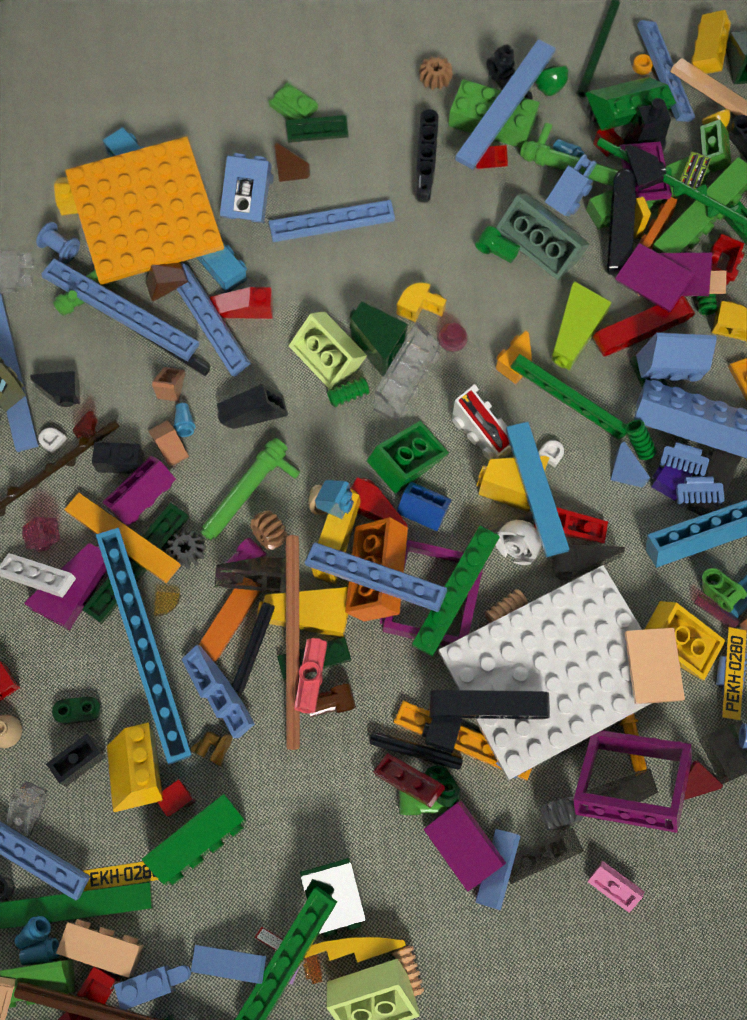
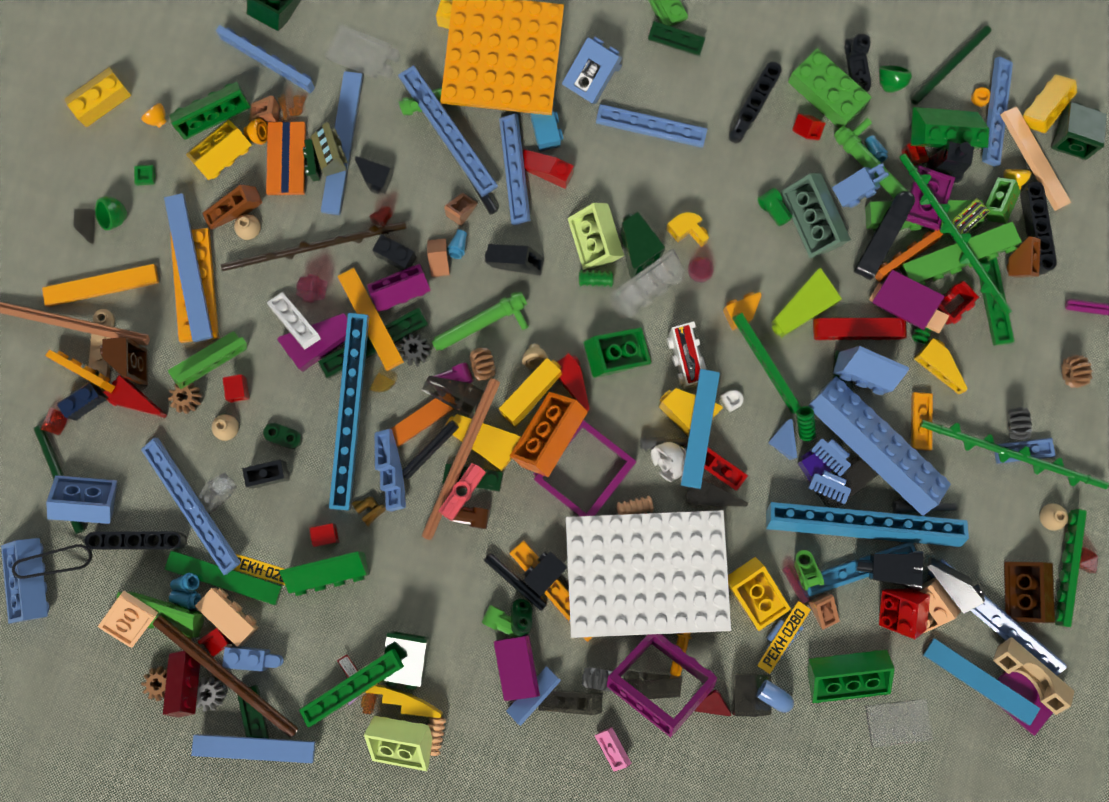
camera: 25 degrees right, 10 degrees up
(50, 237) = (423, 50): medium blue hose -> none
(51, 439) = (351, 214): white tile -> none
(134, 768) = (304, 500): yellow slope -> none
(164, 279) = (494, 120): reddish brown slope -> none
(228, 964) = (310, 670): medium blue tile -> none
(290, 165) = (638, 62): reddish brown slope -> none
(335, 498) = (539, 367): dark azure slope -> none
(376, 577) = (542, 442): medium blue tile -> none
(409, 780) = (498, 602): dark red tile -> none
(423, 506) = (610, 398): blue brick -> none
(435, 72) = (803, 24): medium nougat gear -> none
(458, 588) = (601, 477): green plate -> none
(489, 704) = (581, 577): black beam -> none
(505, 104) = (841, 87): medium blue tile -> none
(642, 216) = (904, 236): yellow tile -> none
(645, 167) = (926, 199): black slope -> none
(654, 277) = (887, 294): magenta tile -> none
(654, 666) = (721, 606): light nougat tile -> none

